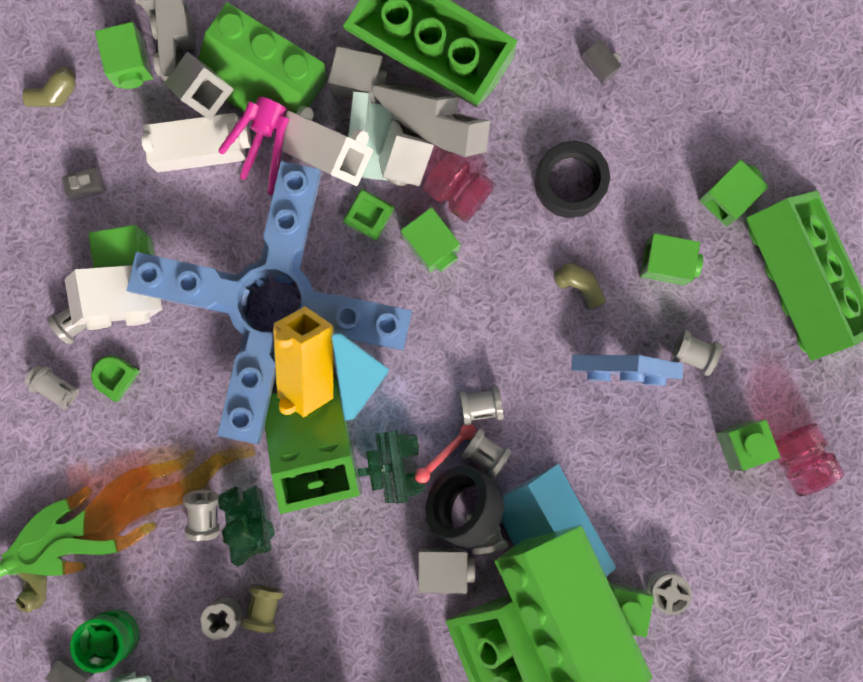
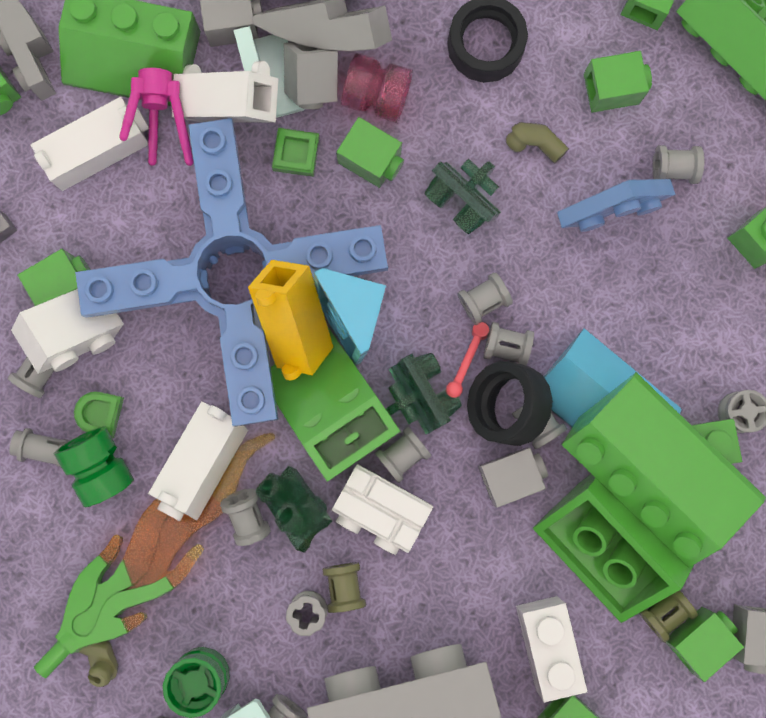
camera: 25 degrees left, 0 degrees up
(89, 421) = (94, 466): none -> green wheel
(177, 454) = (197, 463): none -> white brick
(198, 86) = (73, 81): light grey brick -> none
(320, 554) = (382, 510): none -> white brick
(357, 513) = (403, 454): none -> light grey bush
(491, 292) = (451, 182): none -> clear green hips

